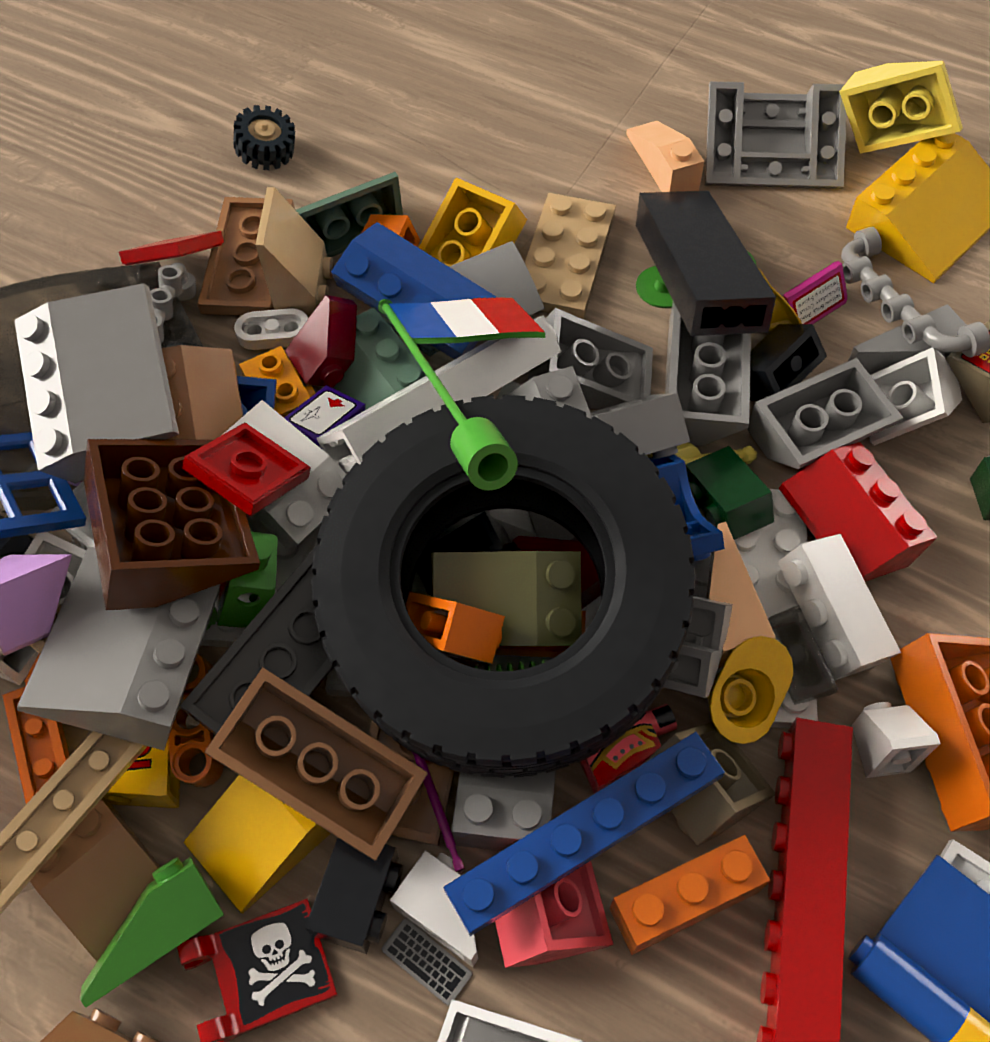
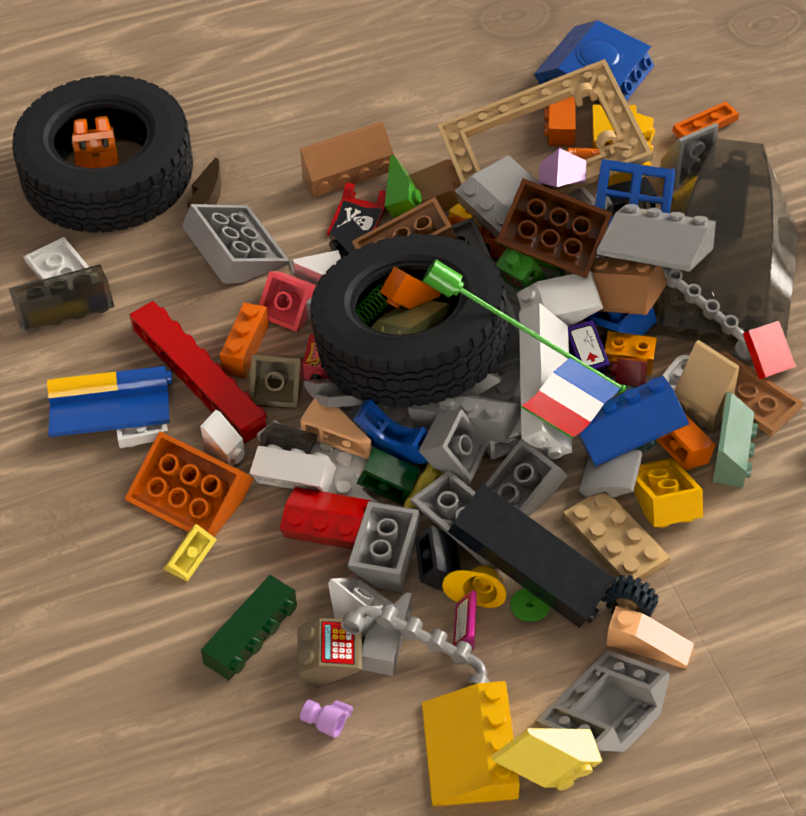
camera: 130 degrees right, 10 degrees down
(246, 468) = (557, 271): red tile -> none
(582, 833) = (294, 305): blue plate -> none
(642, 170) = (631, 595): none -> black wheel
(750, 689) = (291, 406): yellow piece -> none

